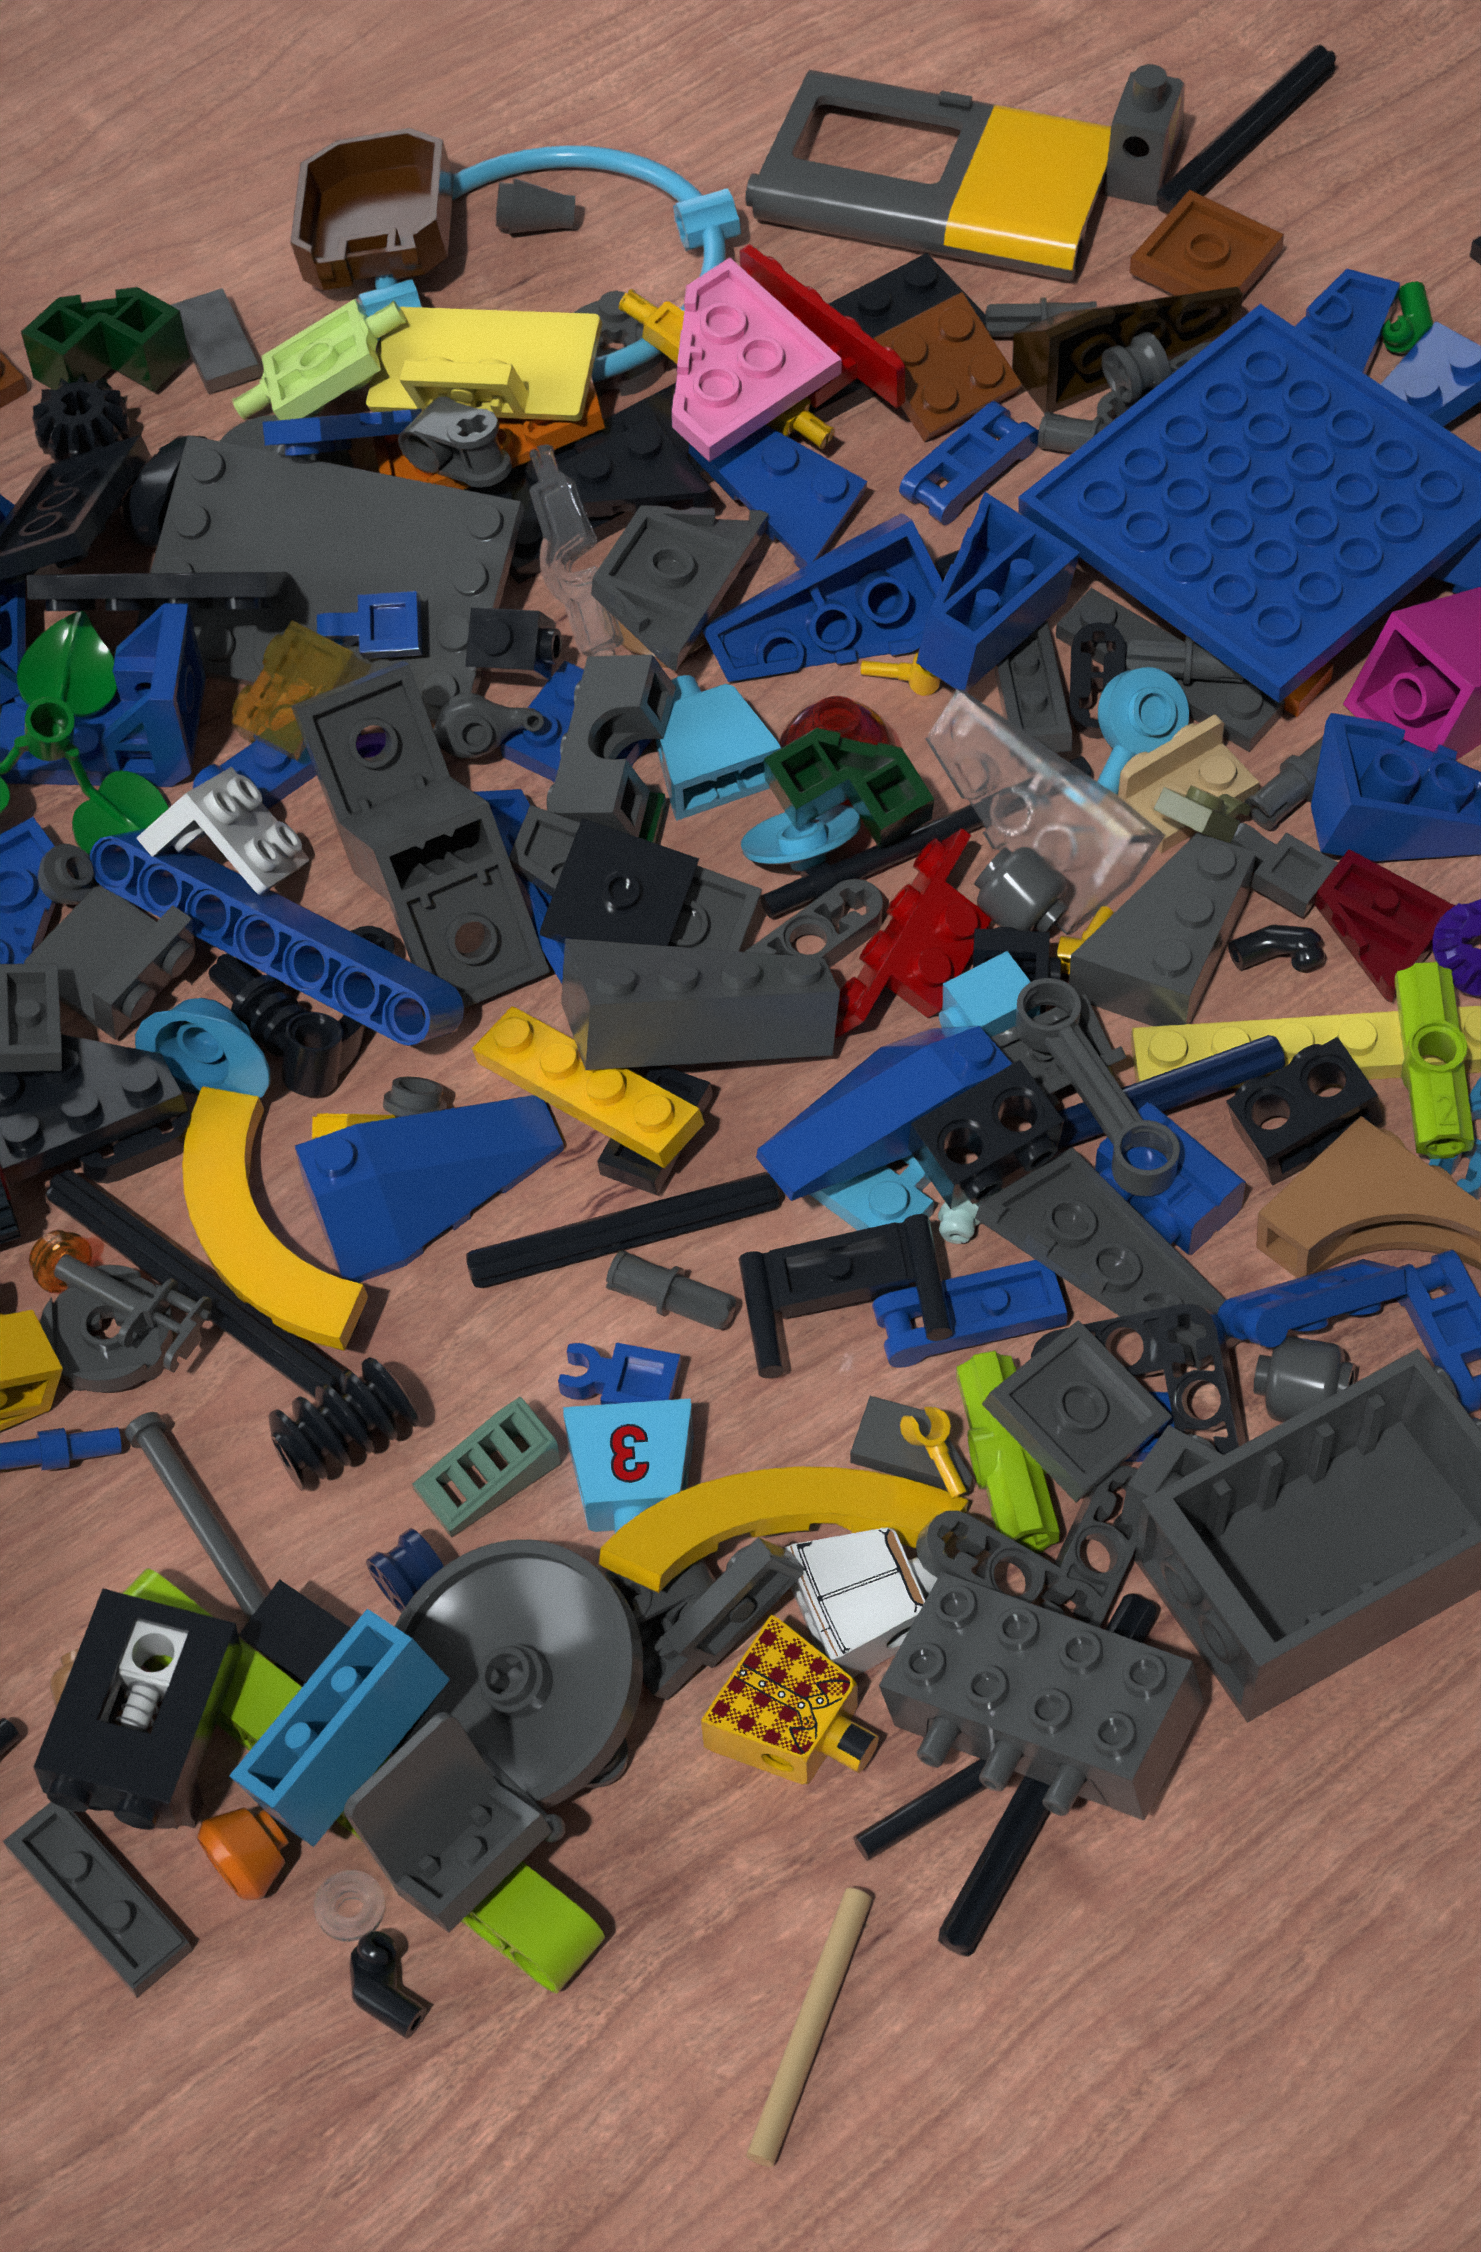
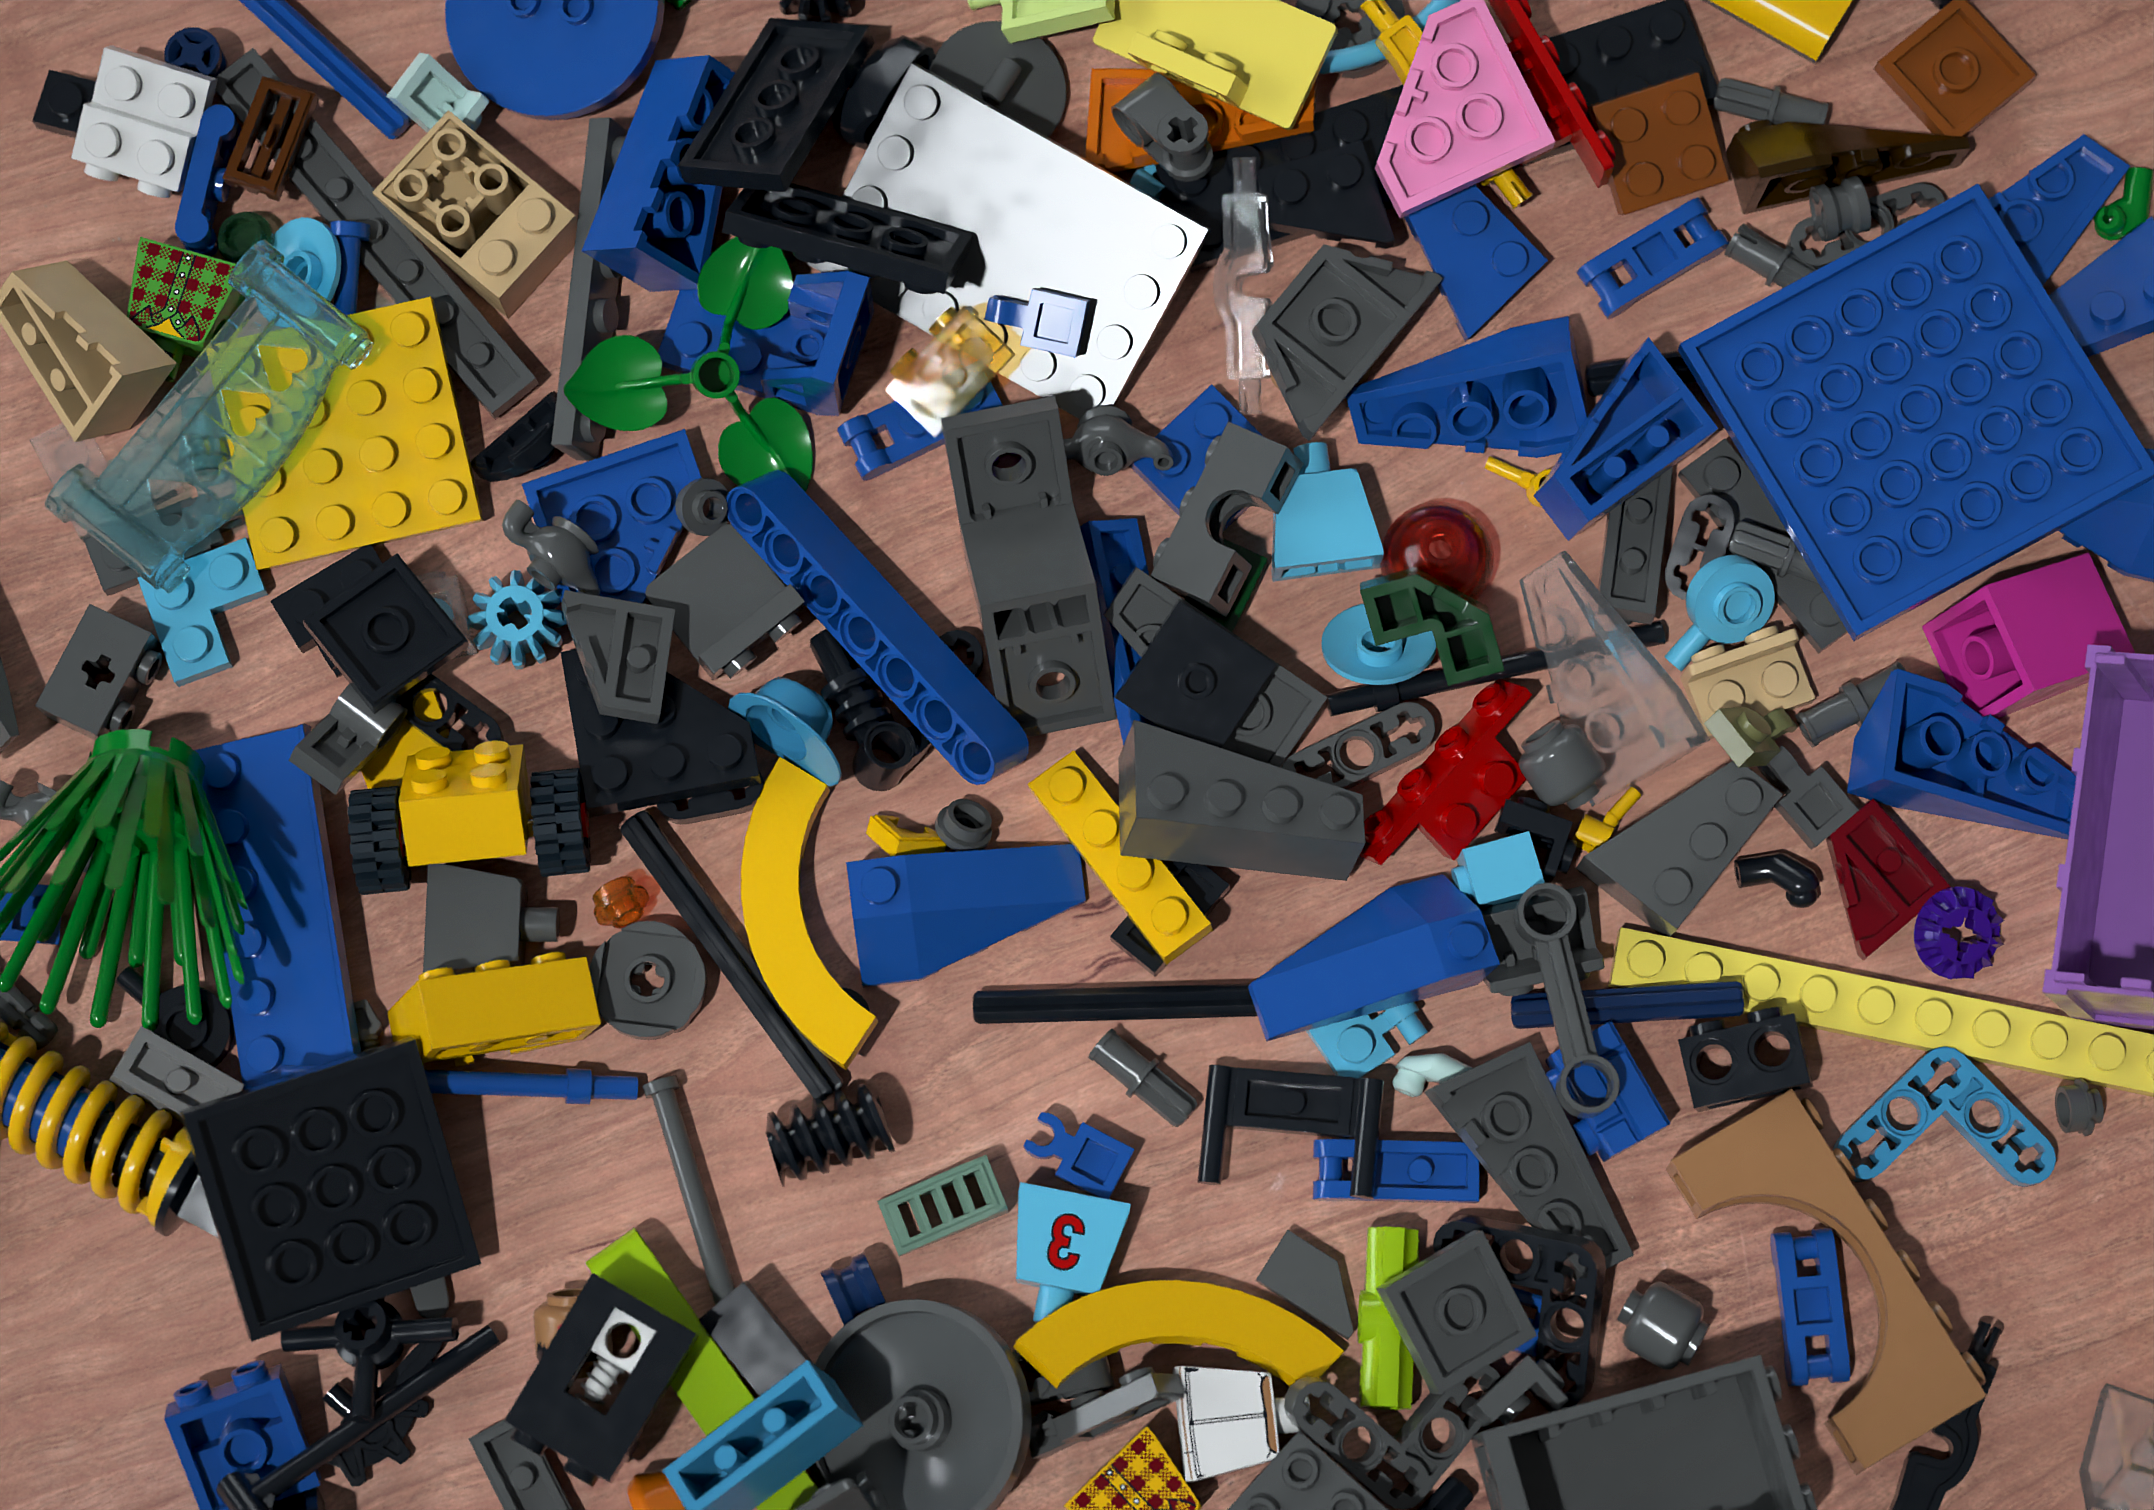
camera: 10 degrees right, 20 degrees up
(139, 1308) = (676, 975): dark grey piece -> none
(237, 823) = (865, 504): white bracket -> none
(334, 432) = (1054, 83): blue wing -> none
(513, 642) = (1165, 370): black bracket -> none
(935, 1446) = (1329, 1295): yellow hand -> none
(975, 1124) = (1451, 1011): black brick -> none
(1309, 1301) = (1691, 1254): blue plate -> none
(1435, 1092) = (1884, 1013): lime piece -> none

